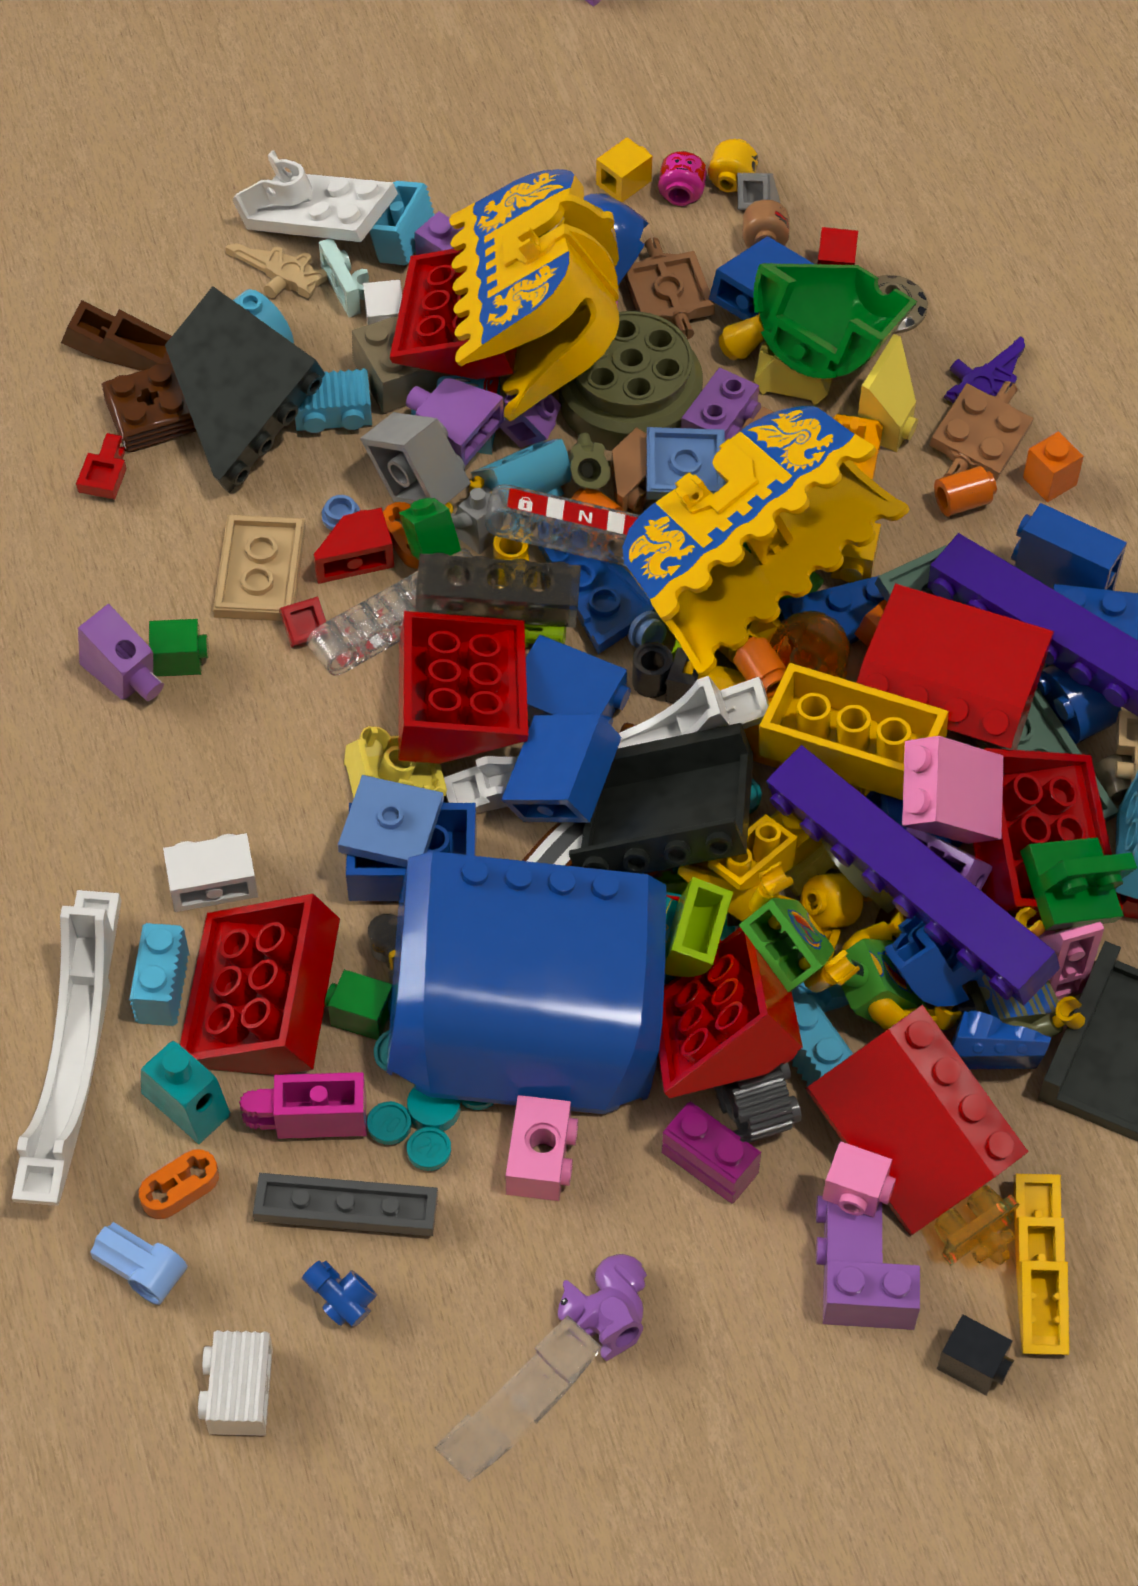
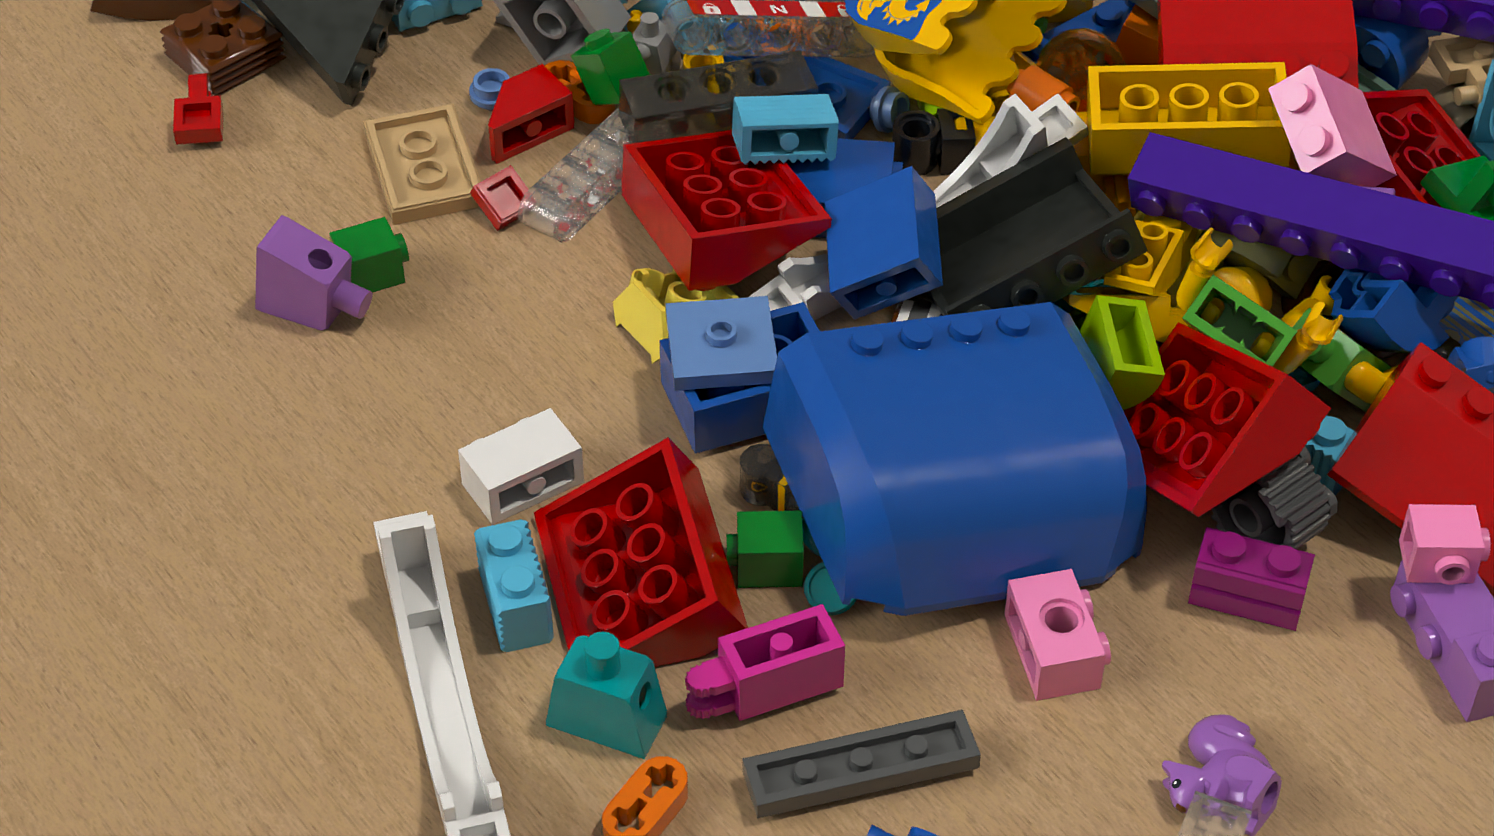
camera: 20 degrees left, 10 degrees down
(429, 1146) = (906, 641): teal piece -> none
(533, 636) = (785, 128): none -> medium azure brick

